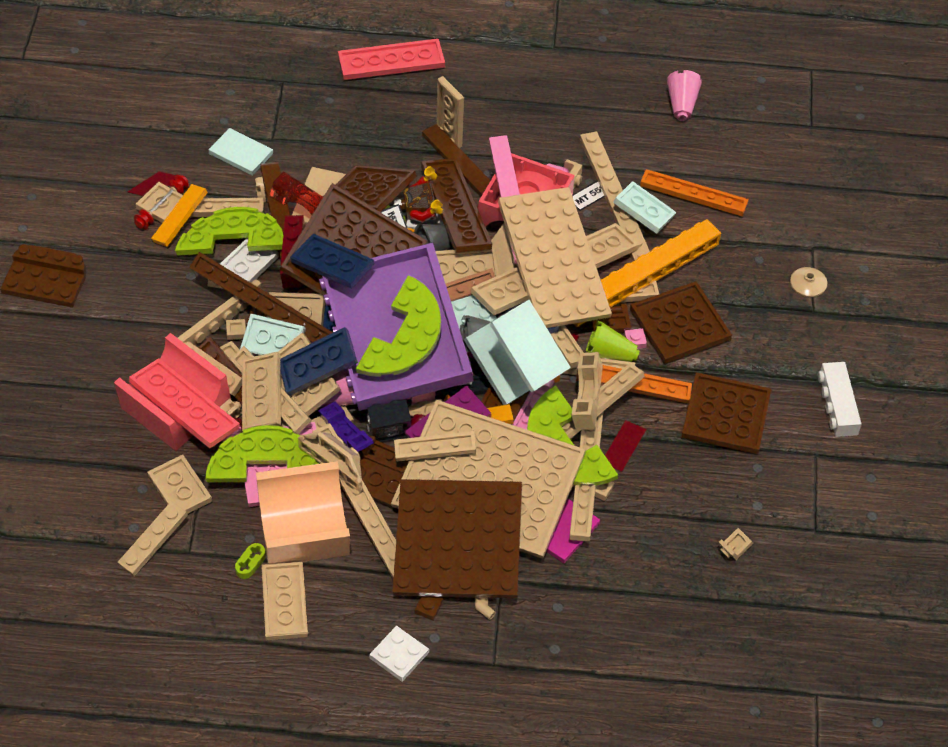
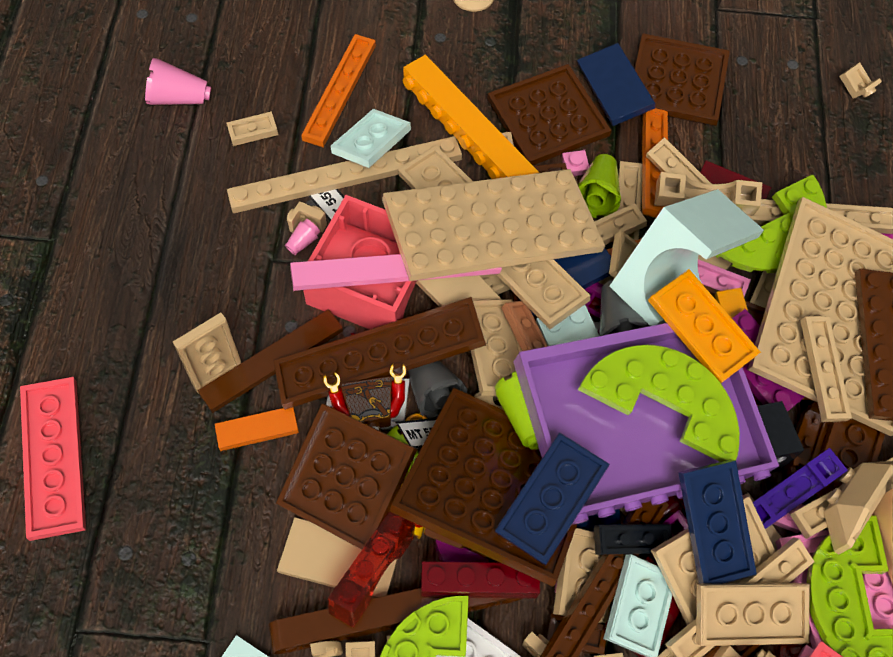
camera: 90 degrees left, 10 degrees up
(314, 320) = (630, 538): none -> black tile
(409, 153) = (256, 428): none -> orange tile
(458, 356) = (704, 326): none -> light orange tile
(652, 143) = (252, 128): none -> tan plate
(713, 364) = (616, 84): none -> dark blue tile

